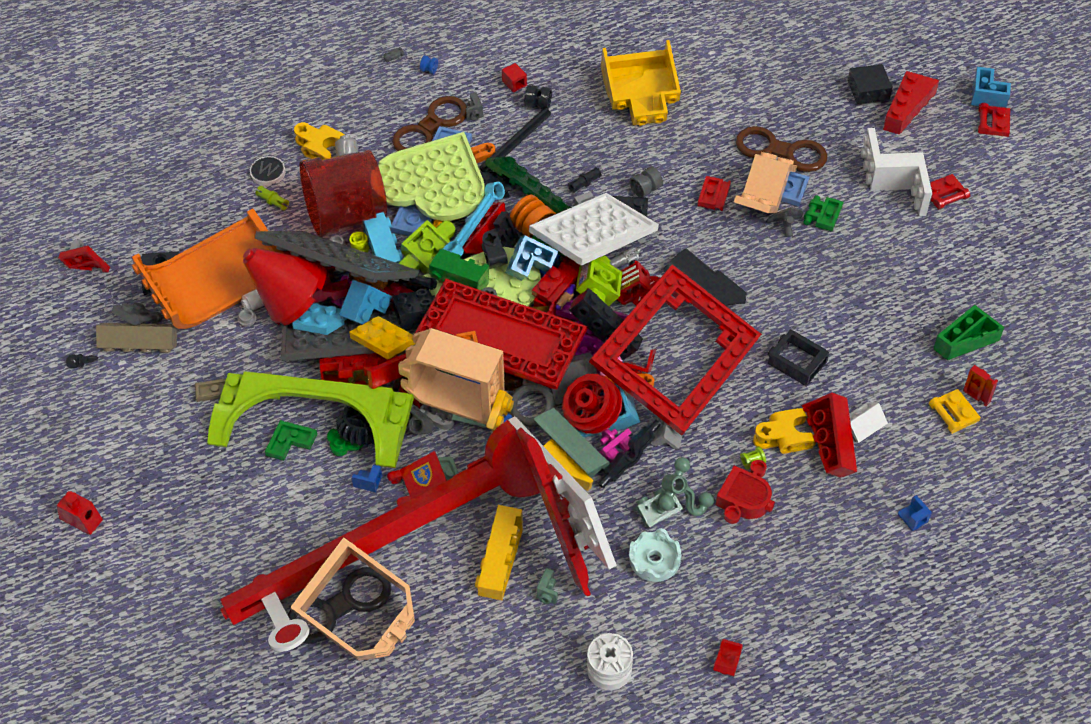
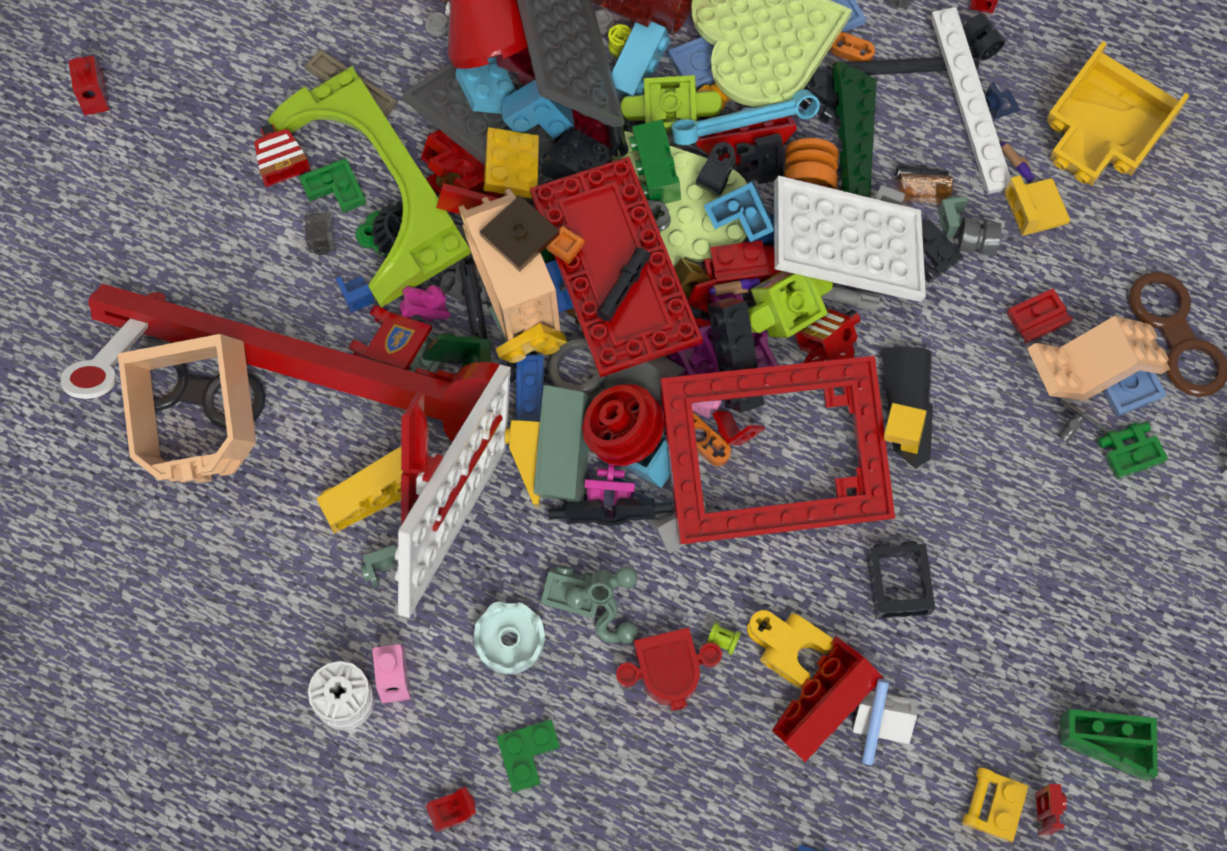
camera: 45 degrees right, 15 degrees up
(239, 451) = (279, 156): none -> torso
(312, 467) = (320, 233): none -> clear smoke brick
(416, 445) = (422, 302): none -> dark pink hips
(441, 423) = (473, 300): none -> black pin
(453, 340) = (519, 233): none -> dark brown plate
(467, 448) = (458, 349): none -> dark green bracket
(517, 327) = (628, 276): none -> black pin
(567, 128) = (971, 100): none -> white plate
(579, 119) = (995, 101): none -> dark blue bracket
(595, 182) = (926, 187): none -> clear orange tile
(619, 622) = (391, 672): none -> bright pink torso
(620, 138) = (1018, 162): none -> piece
(621, 186) = (950, 214): none -> sand green bracket
(652, 149) = (1035, 205): none -> yellow bracket
(722, 285) = (905, 427): none -> yellow piece
(723, 601) = (520, 748): none -> green plate
(865, 423) = (875, 721): none -> light blue bar

